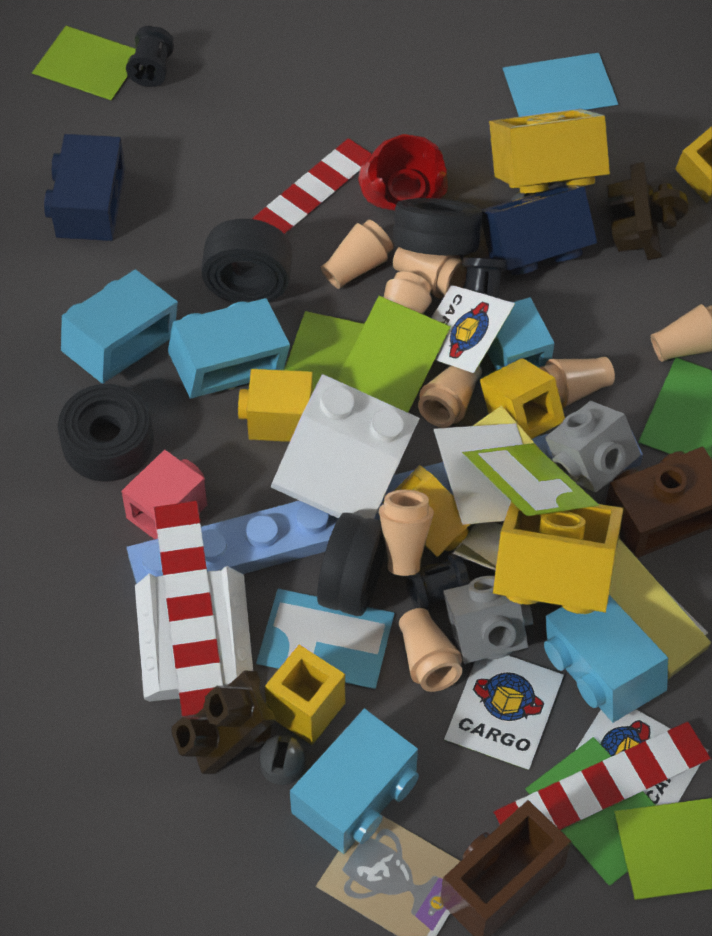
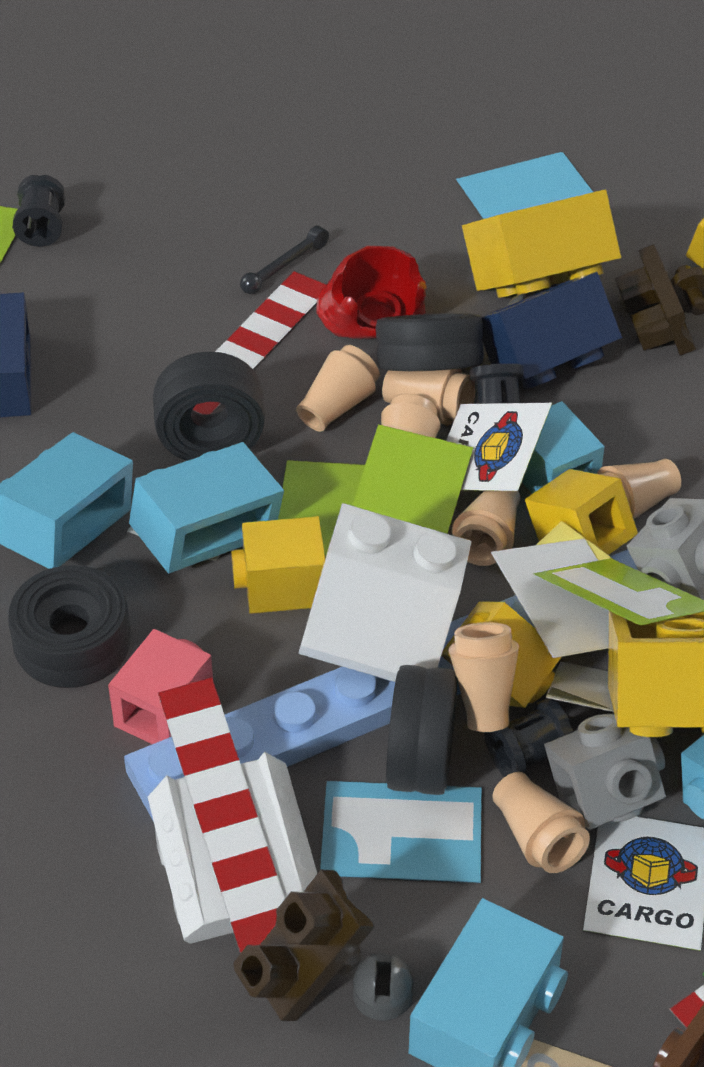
camera: 10 degrees left, 10 degrees down
(306, 694) = (402, 893): yellow brick -> none
(372, 111) = (316, 238): none -> black hinge

